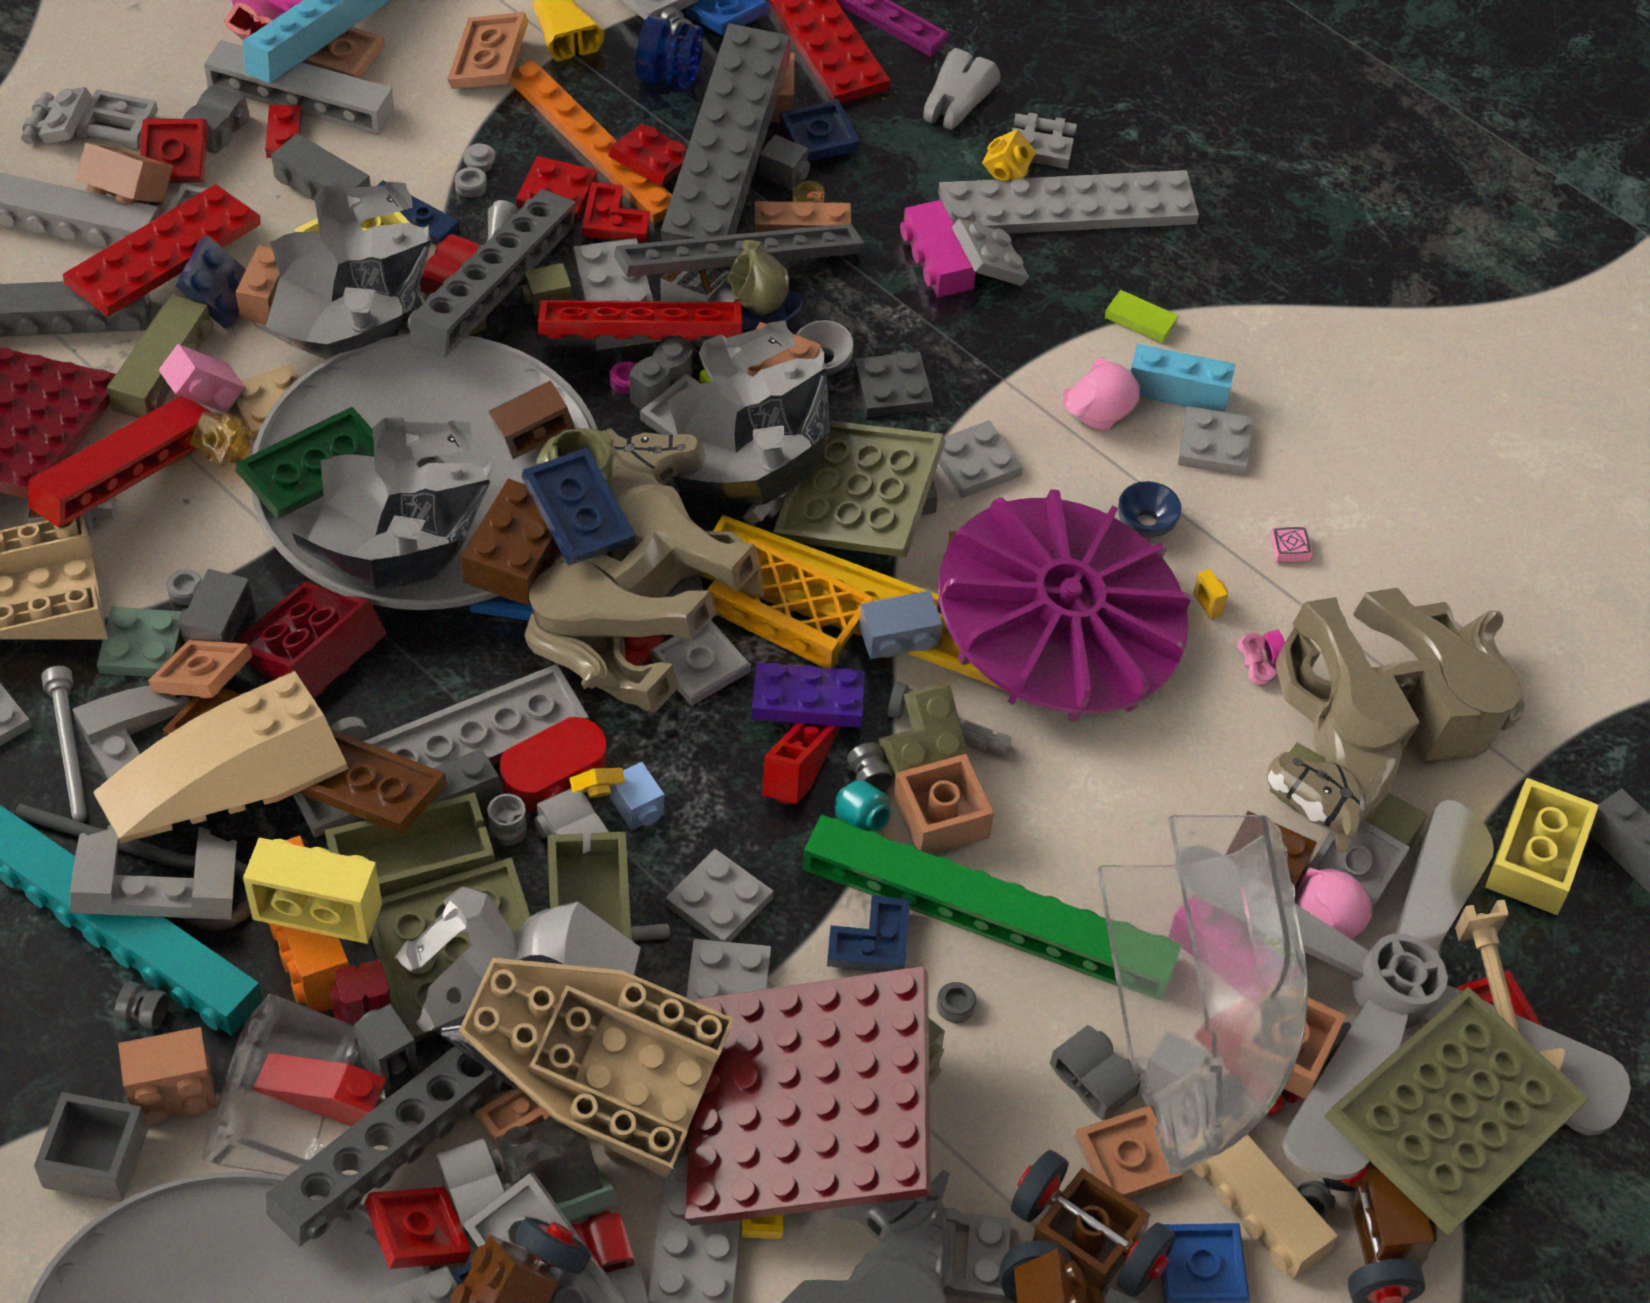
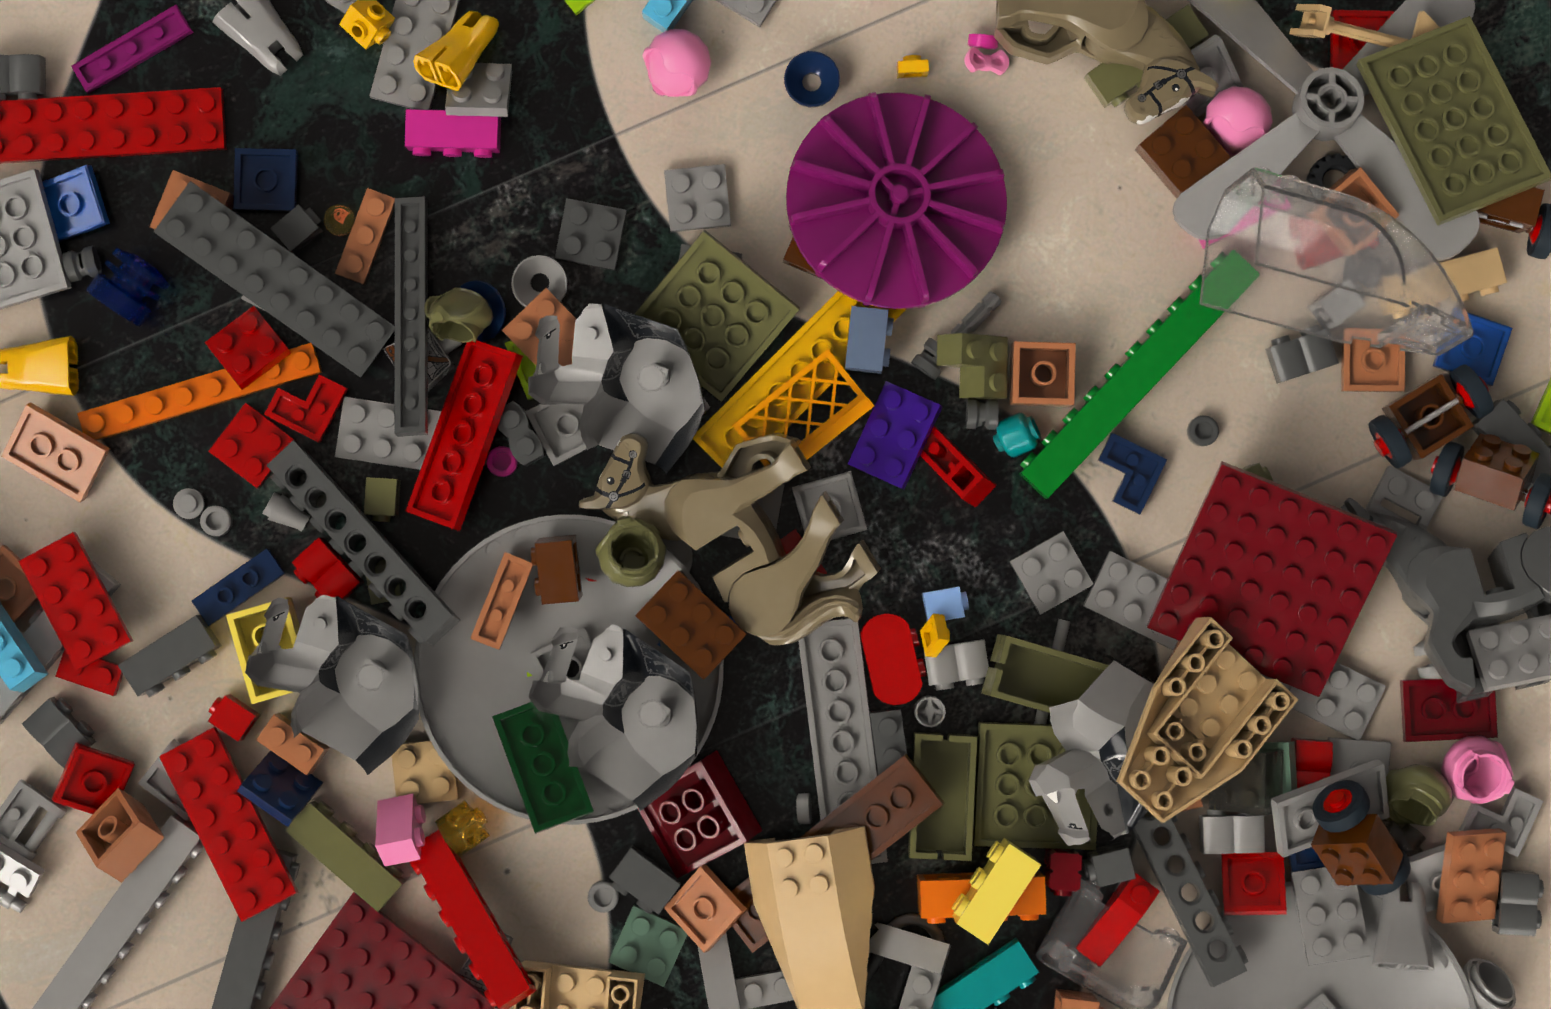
camera: 70 degrees left, 35 degrees up
(273, 226) = (233, 717): none -> red brick
(348, 86) = (75, 601): none -> red plate
(474, 389) = (502, 601): none -> nougat plate
(578, 506) = (697, 571): dark blue plate -> none
(1006, 215) = (456, 53): none -> yellow piece

